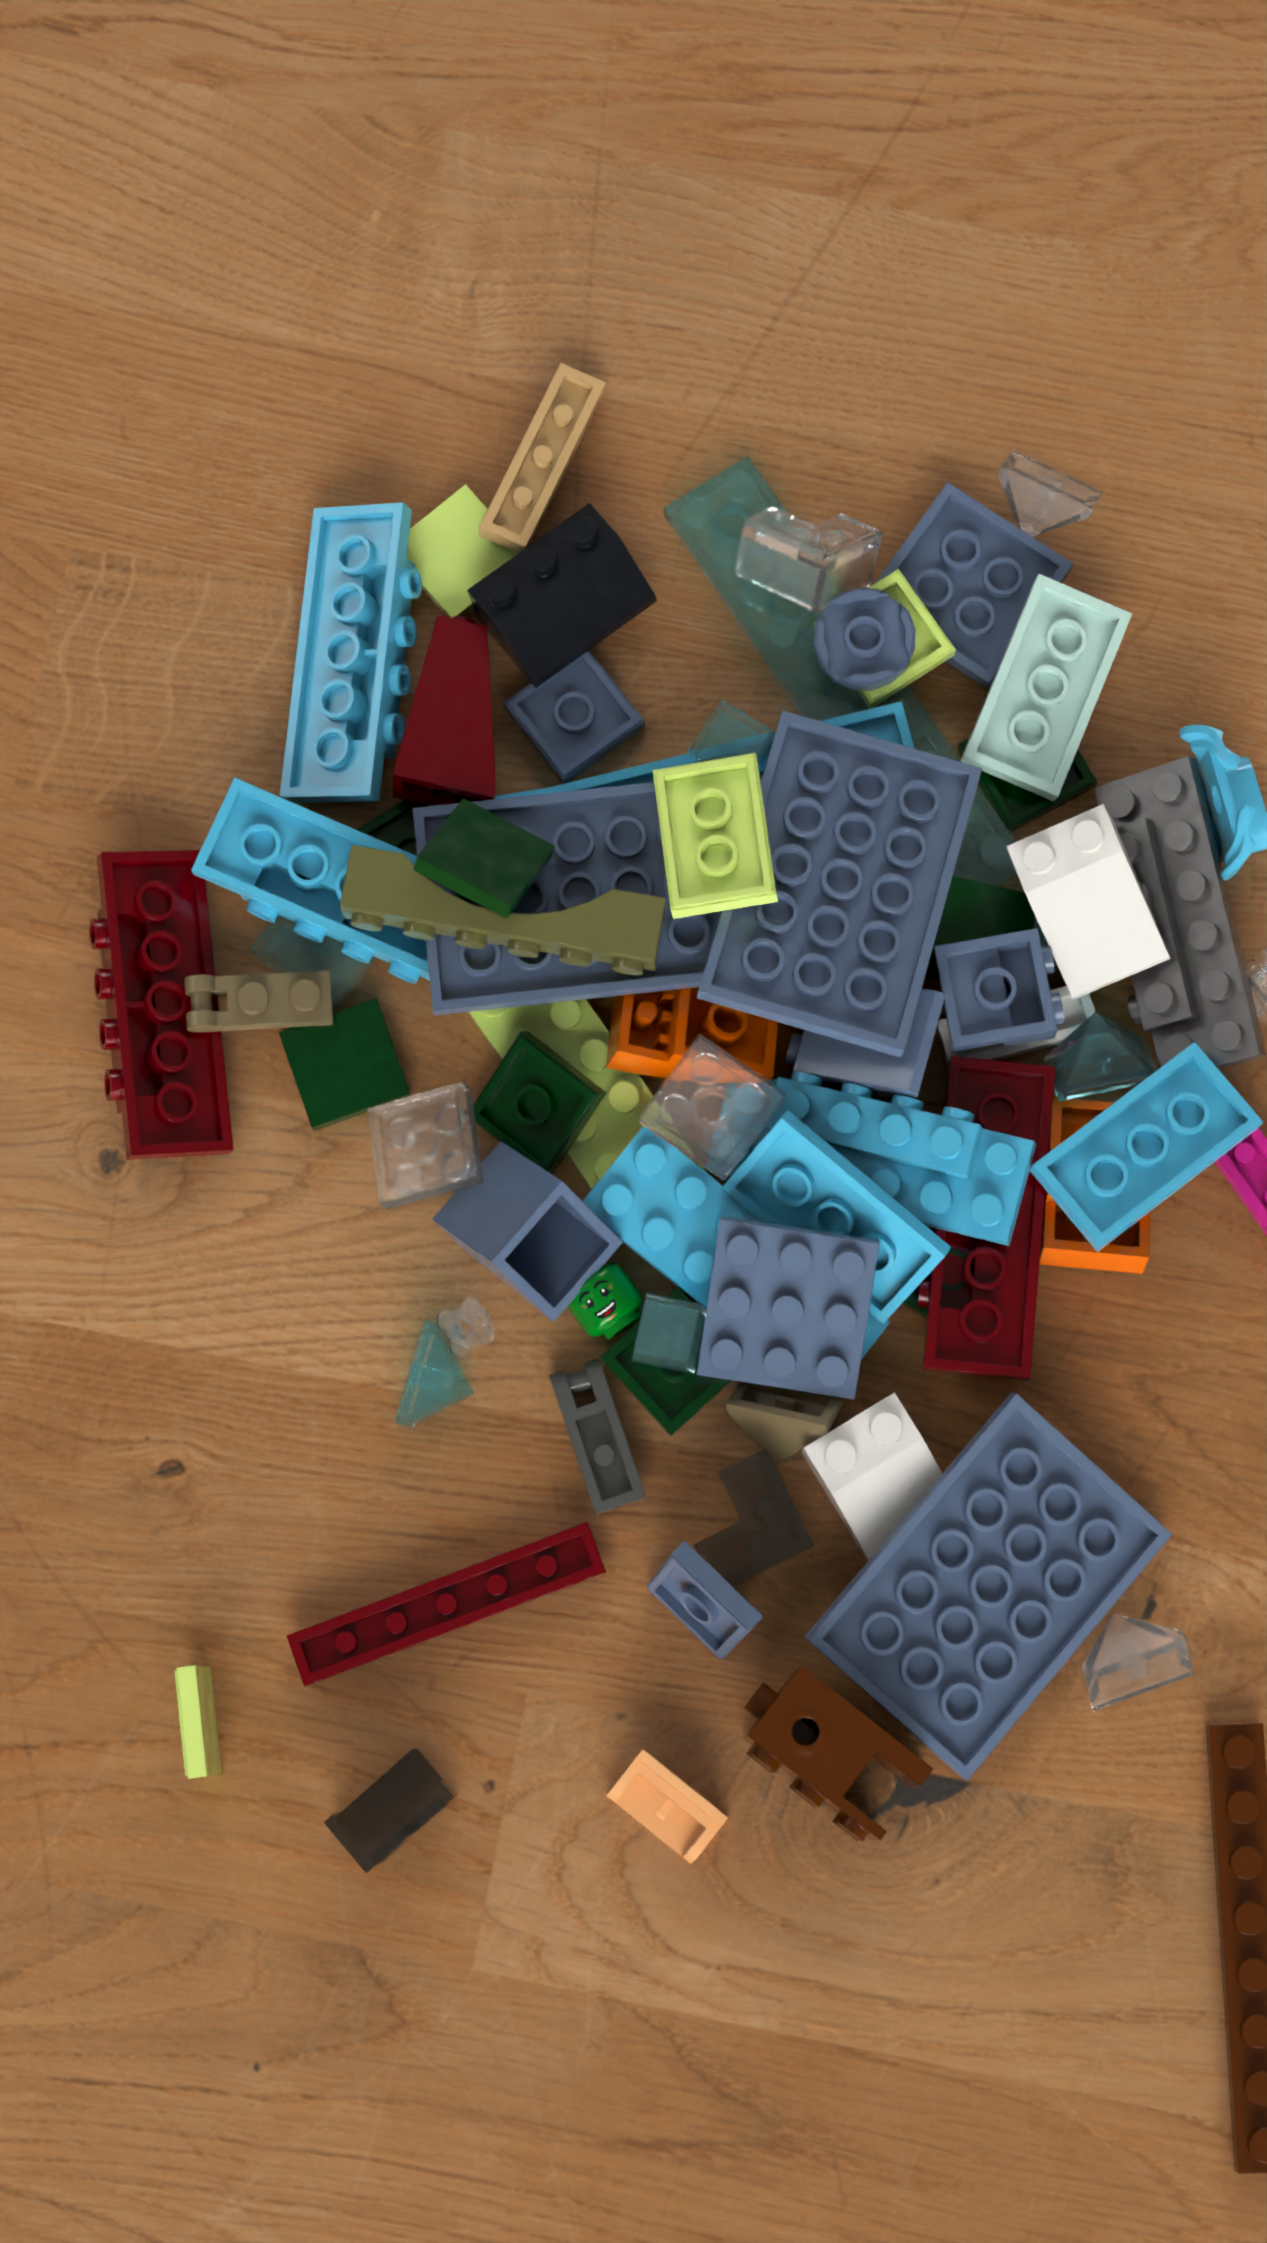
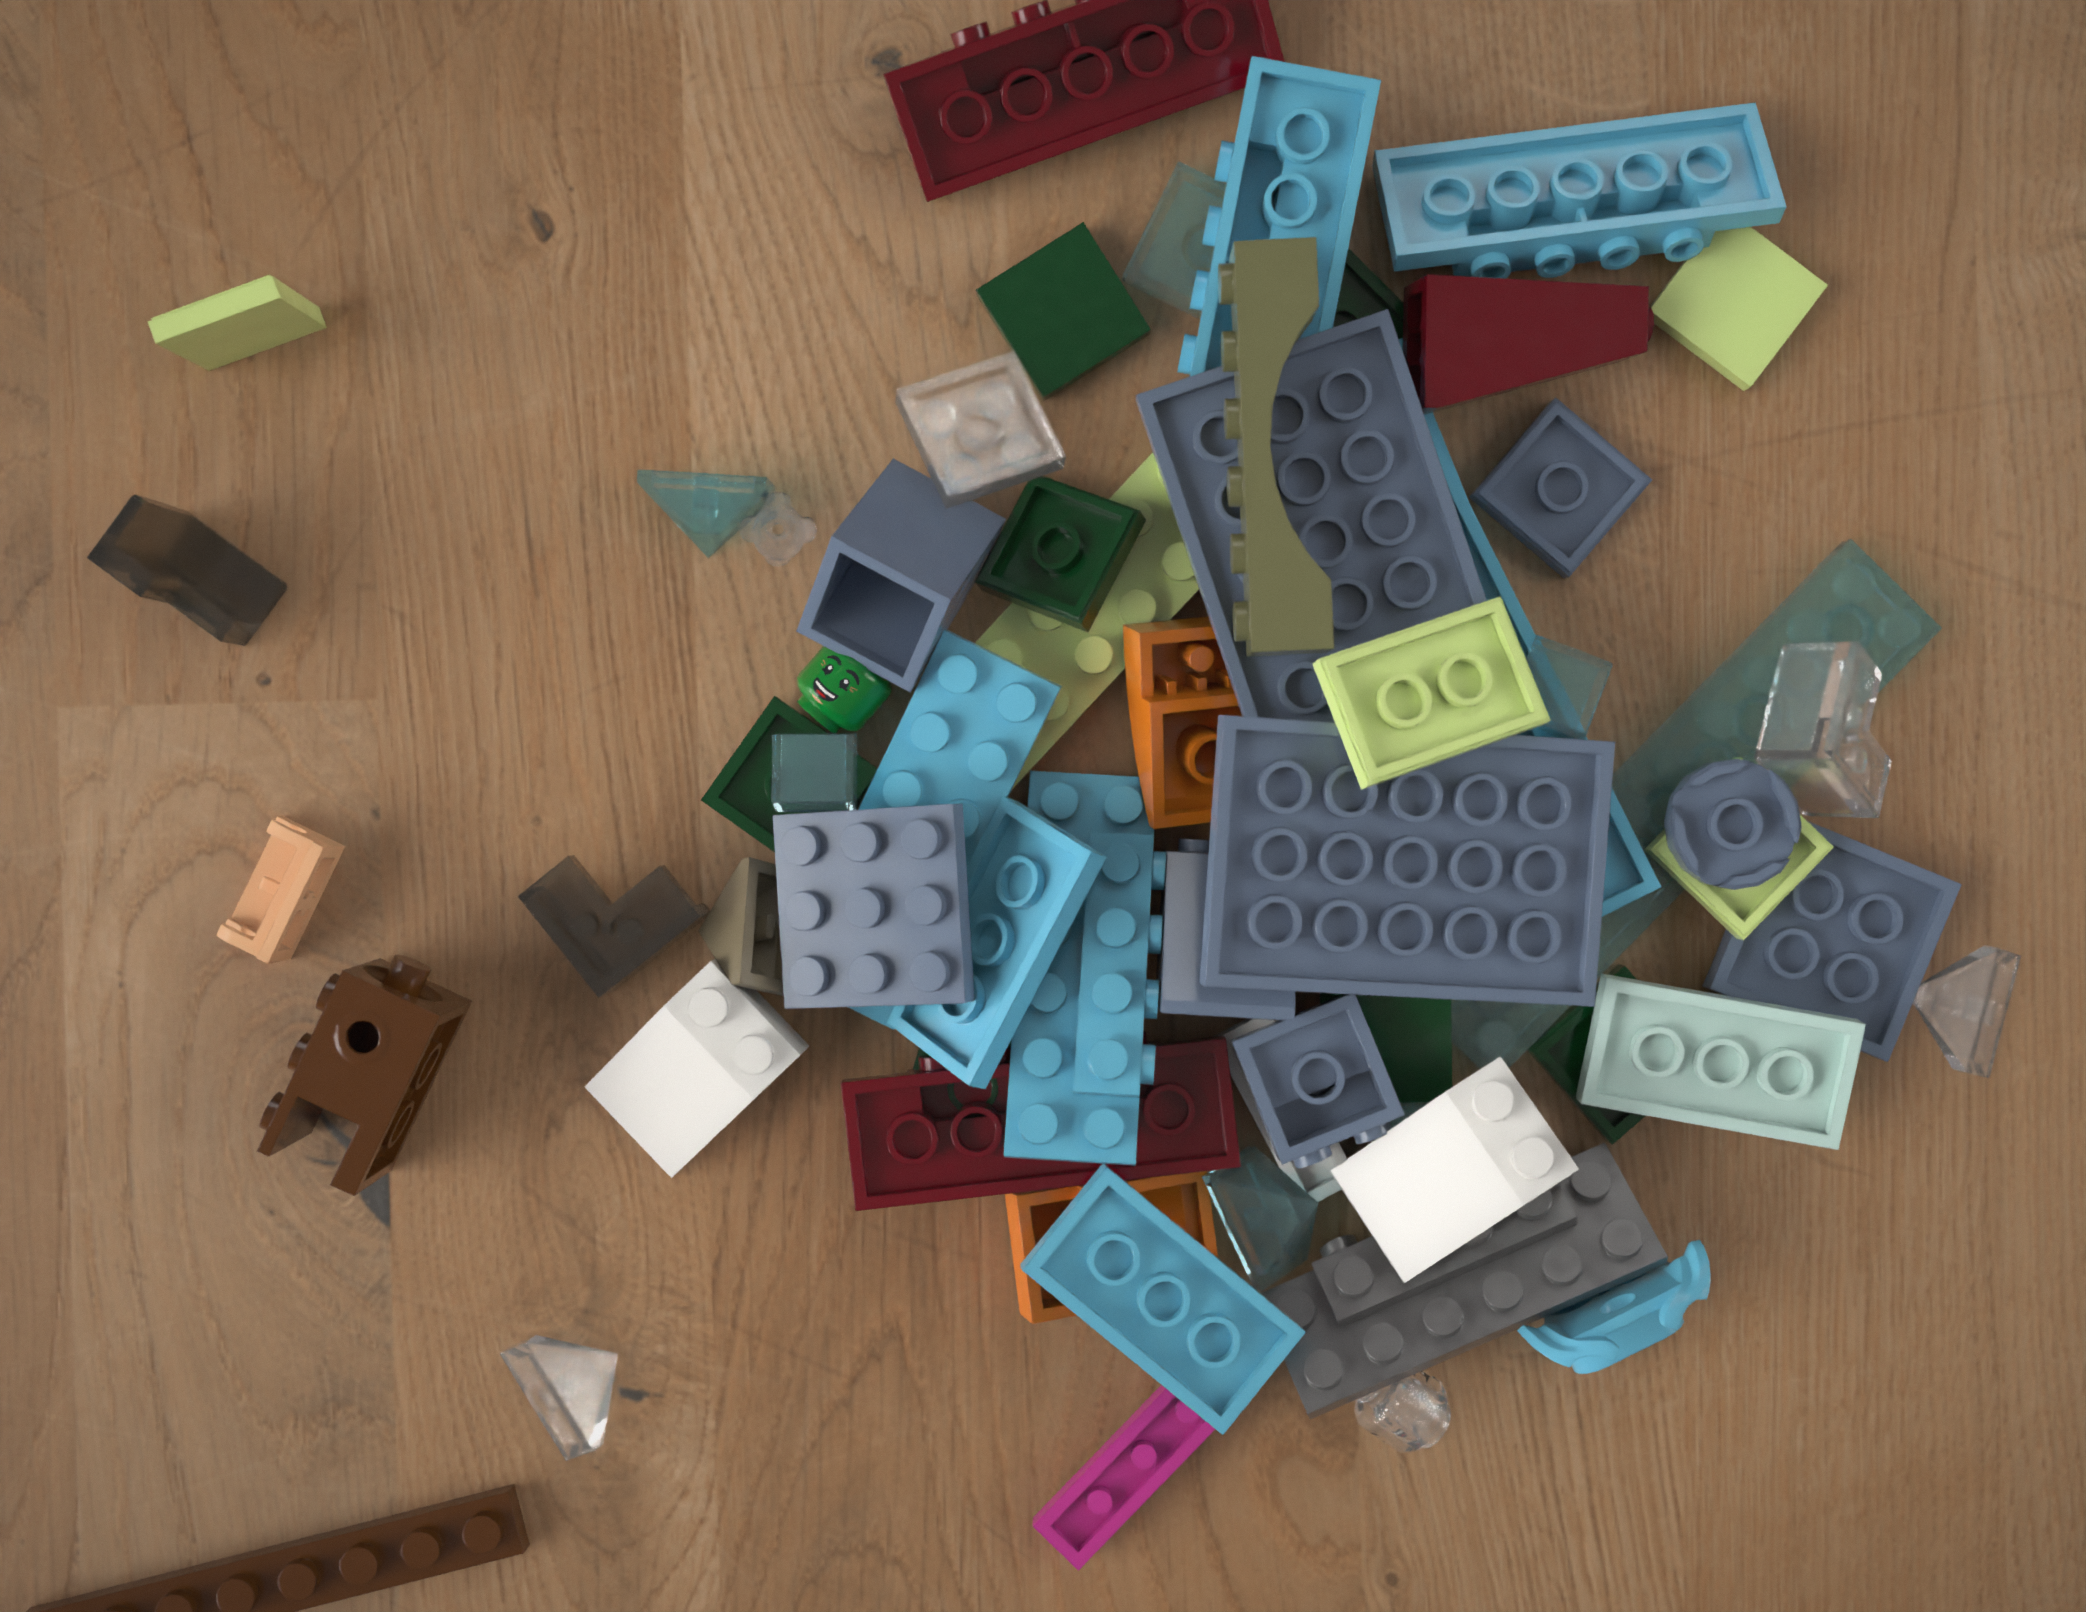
camera: 75 degrees right, 10 degrees up
(260, 1001) = (1113, 188): dark tan plate -> none
(446, 1604) = (449, 582): dark red plate -> none
(484, 858) = (1337, 409): dark green tile -> none
(542, 459) = (1882, 371): tan plate -> none
(561, 595) = (1709, 436): black slope -> none
(598, 1439) = (680, 715): dark grey plate -> none
(703, 1600) = (508, 882): sand blue tile -> none
(712, 1107) = (1095, 763): clear plate -> none
(988, 1586) = (604, 1208): sand blue plate -> none

